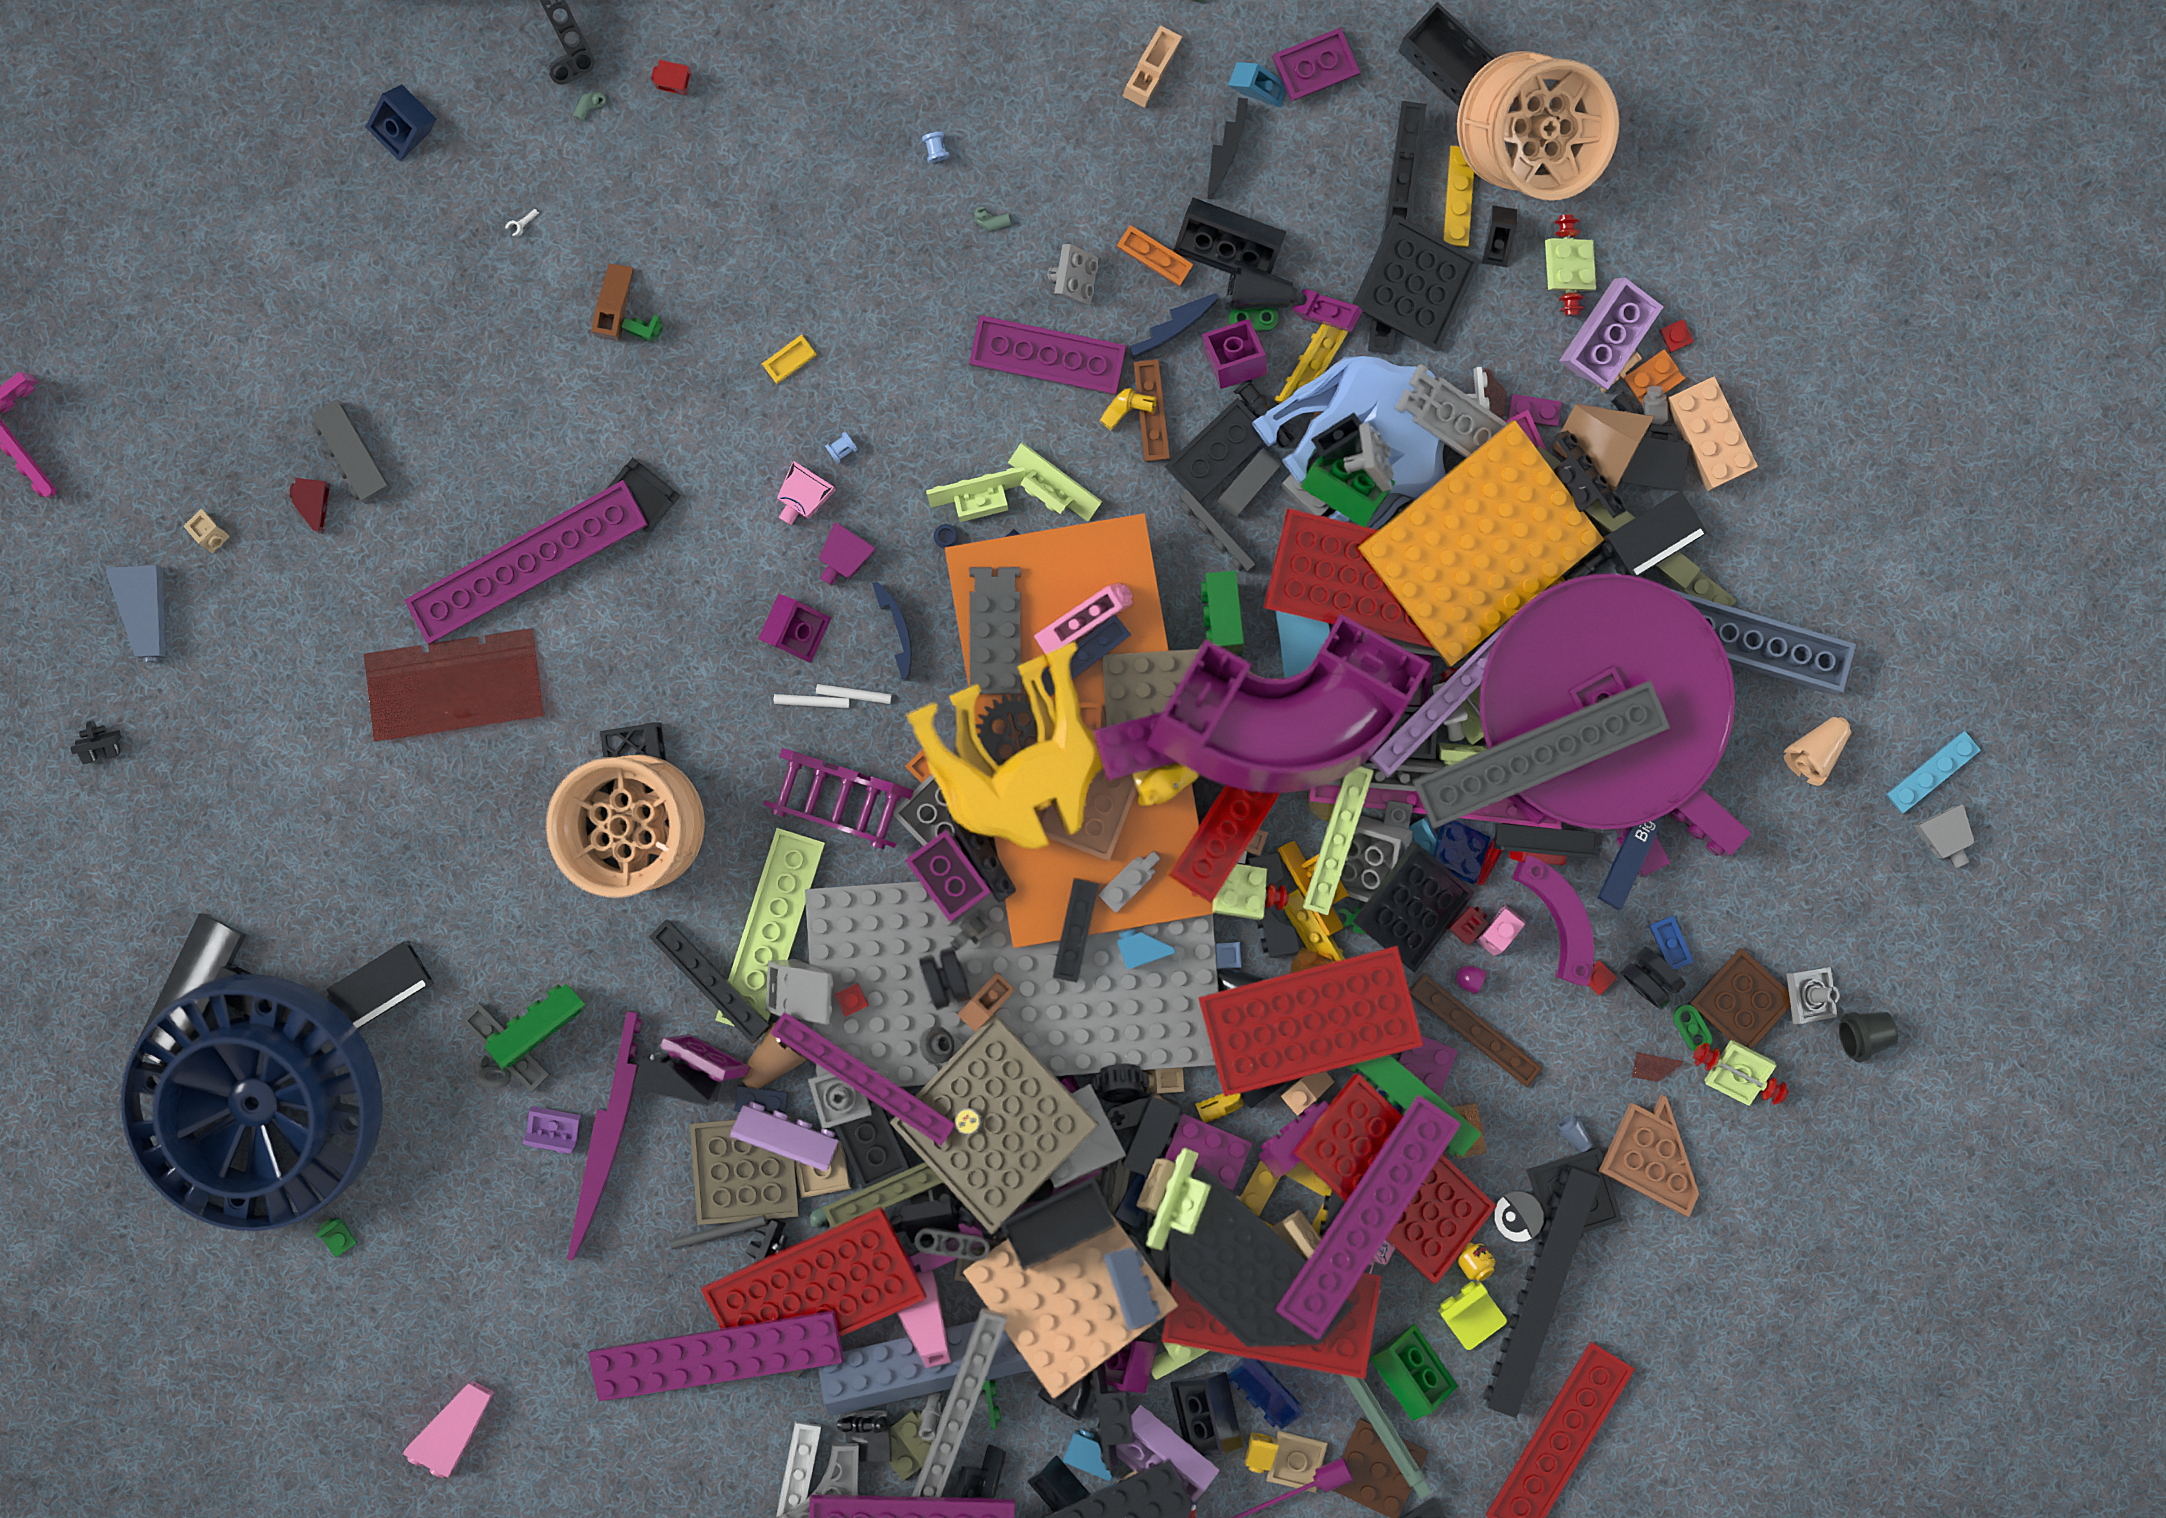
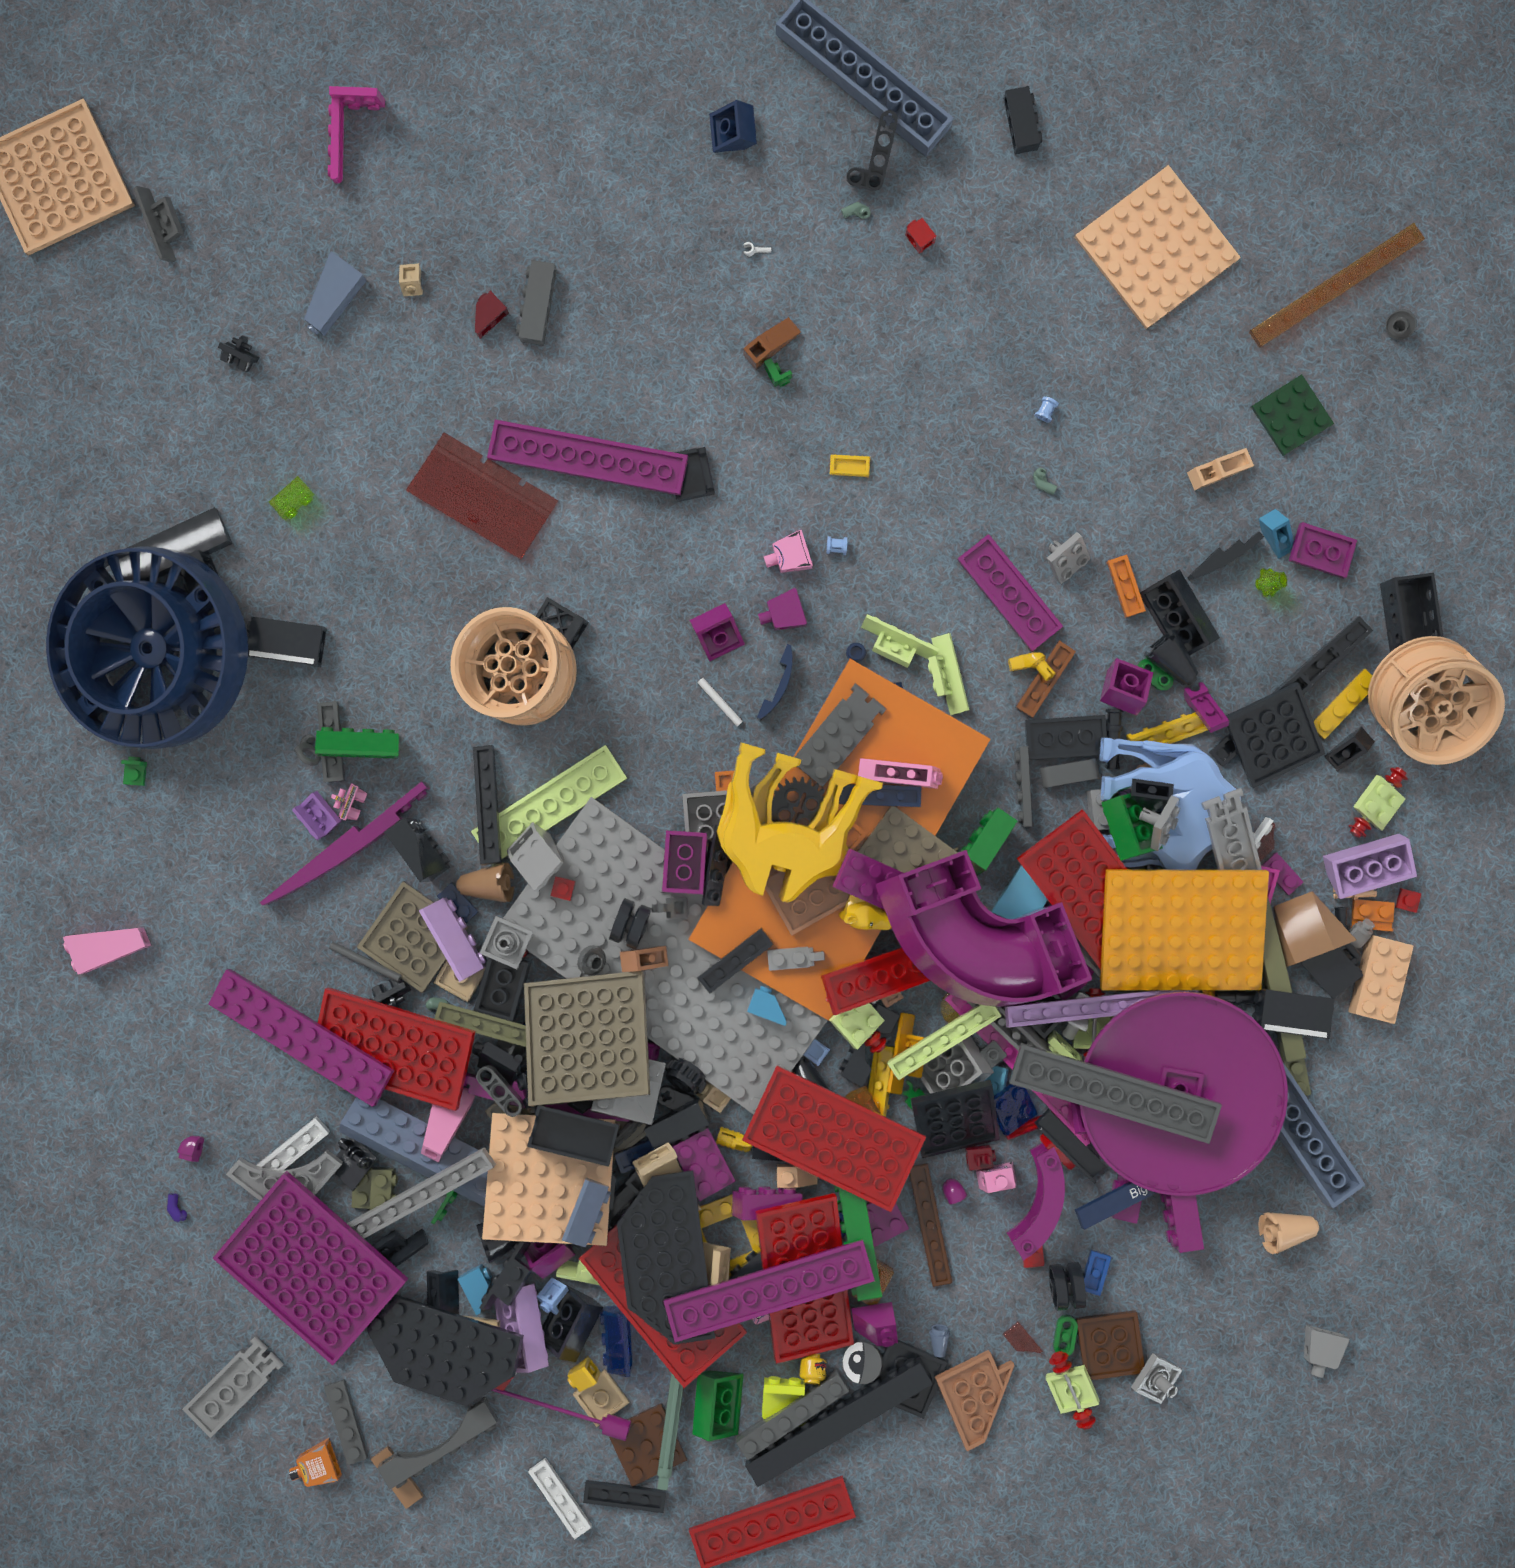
camera: 40 degrees right, 0 degrees up
(268, 842) = (292, 498): none -> clear neon green bracket
(569, 1080) = (347, 811): none -> bright pink hips
(704, 1057) = (444, 849): magenta plate -> none
(811, 701) = (690, 684): white bar -> none
(848, 780) = (673, 752): magenta fence -> none
(862, 1078) = (529, 943): magenta plate -> none
(931, 1416) = (400, 1184): light grey pin -> none
(968, 1121) = (572, 1024): tile -> none
(1167, 1402) = (552, 1295): none -> light blue bracket
(1181, 320) = (1110, 638): dark blue slope -> none
(1181, 1203) = (660, 1185): yellowish green bracket -> none
(1290, 137) = (1270, 582): none -> clear neon green rock
(1493, 1322) = (779, 1424): none -> dark grey arch
(1500, 1166) = (876, 1323): none -> magenta slope
(1583, 479) = (1279, 942): black bracket -> none
(1867, 1034) = (1171, 1431): pearl dark grey piece -> none
(1933, 772) = (1345, 1302): medium azure plate -> none

